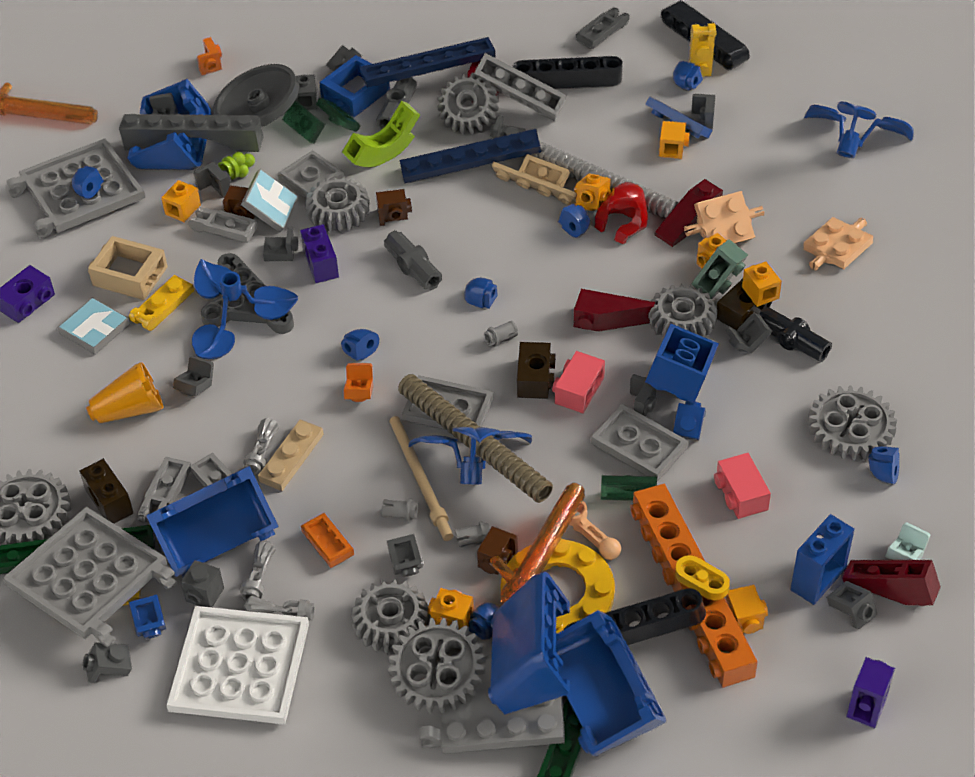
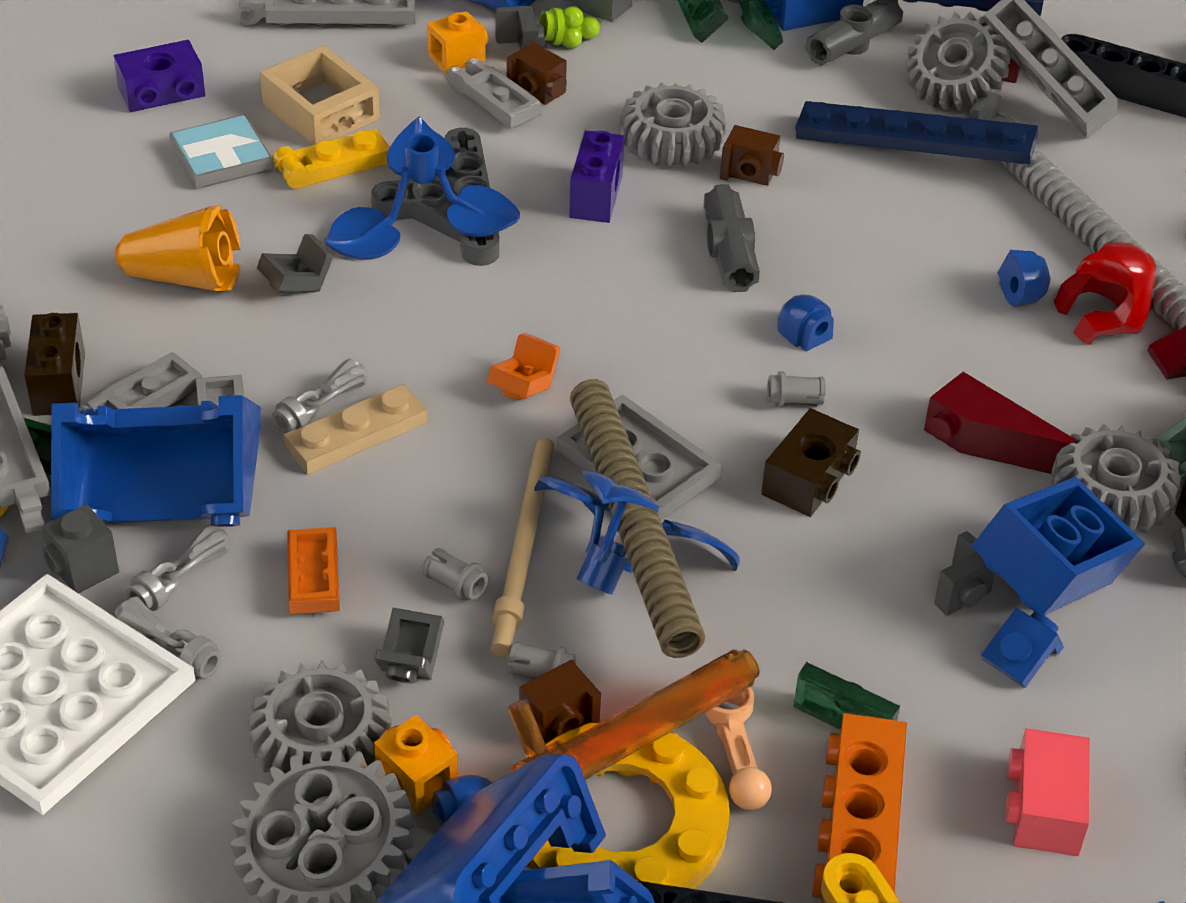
camera: 25 degrees right, 5 degrees down
(269, 200) = (575, 82): tile -> none
(280, 247) = (551, 152): dark grey bracket -> none
(307, 172) = (663, 67): light grey tile -> none
(360, 343) = (570, 318): blue piece -> none
(387, 143) = (798, 75): lime arch -> none
(540, 175) = (1009, 198): tan bracket -> none
(579, 381) = (873, 509): coral brick -> none
(592, 191) = (1072, 241): light orange brick -> none
(639, 442) = (915, 644): light grey plate -> none

